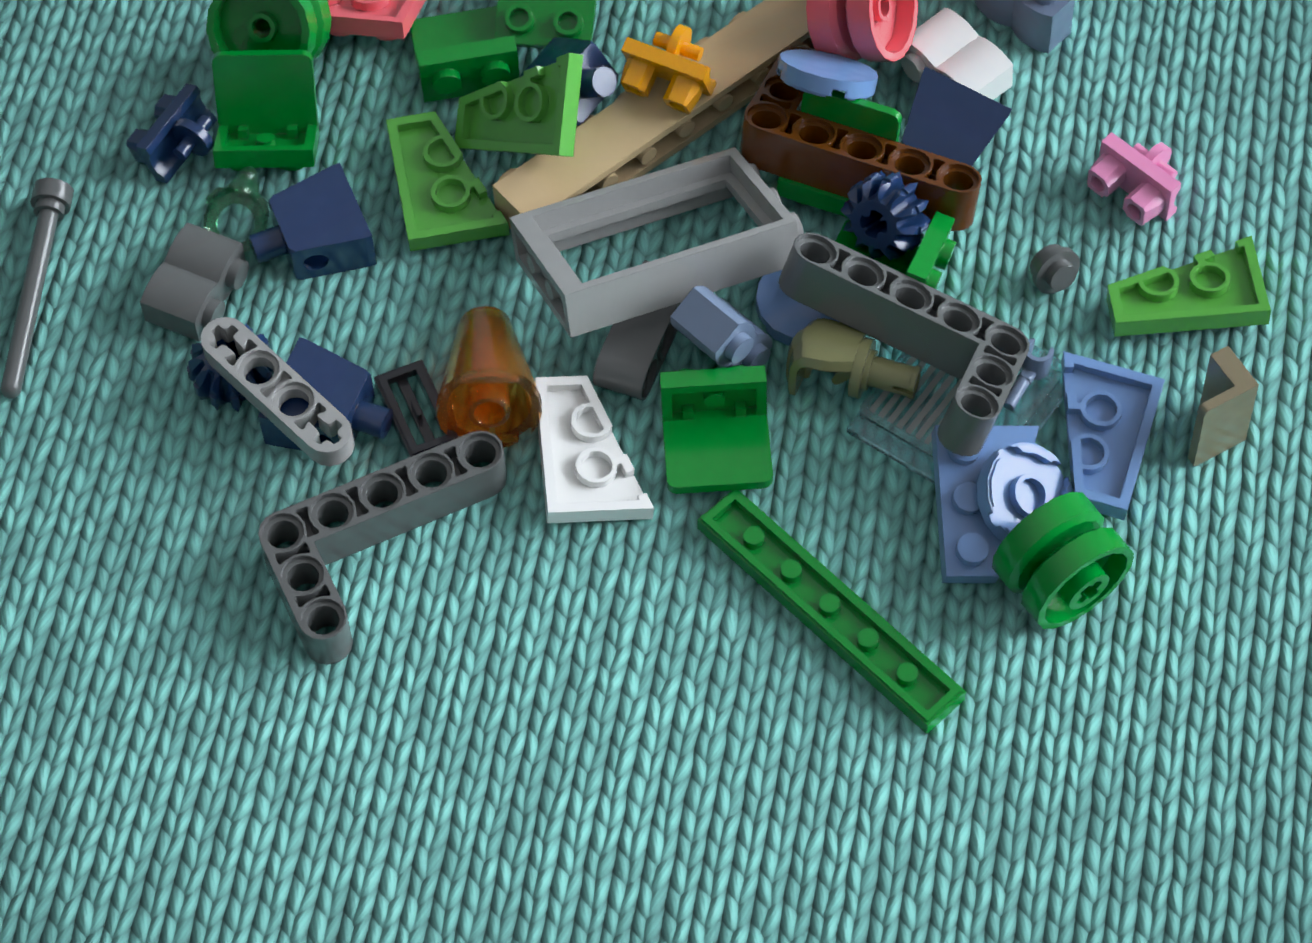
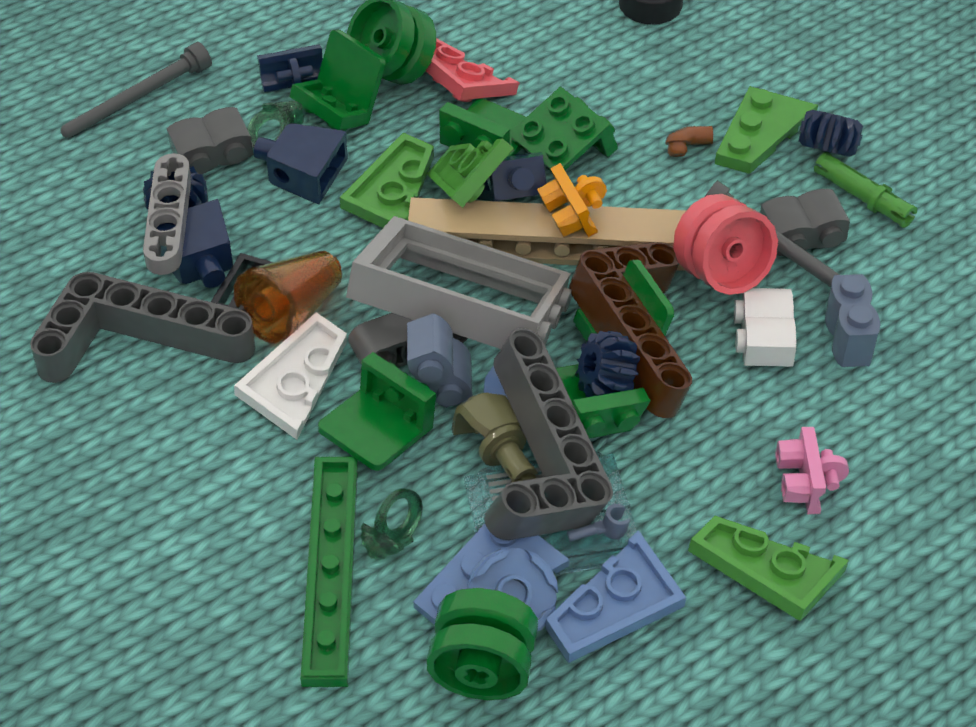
camera: 40 degrees right, 10 degrees down
(823, 72) = (662, 264): medium blue tile -> none
(850, 528) = (384, 541): none -> clear green piece
(952, 119) = (716, 350): dark blue torso -> none
(1054, 268) = (693, 482): dark grey plate -> none
(1223, 408) = (689, 644): dark tan panel -> none

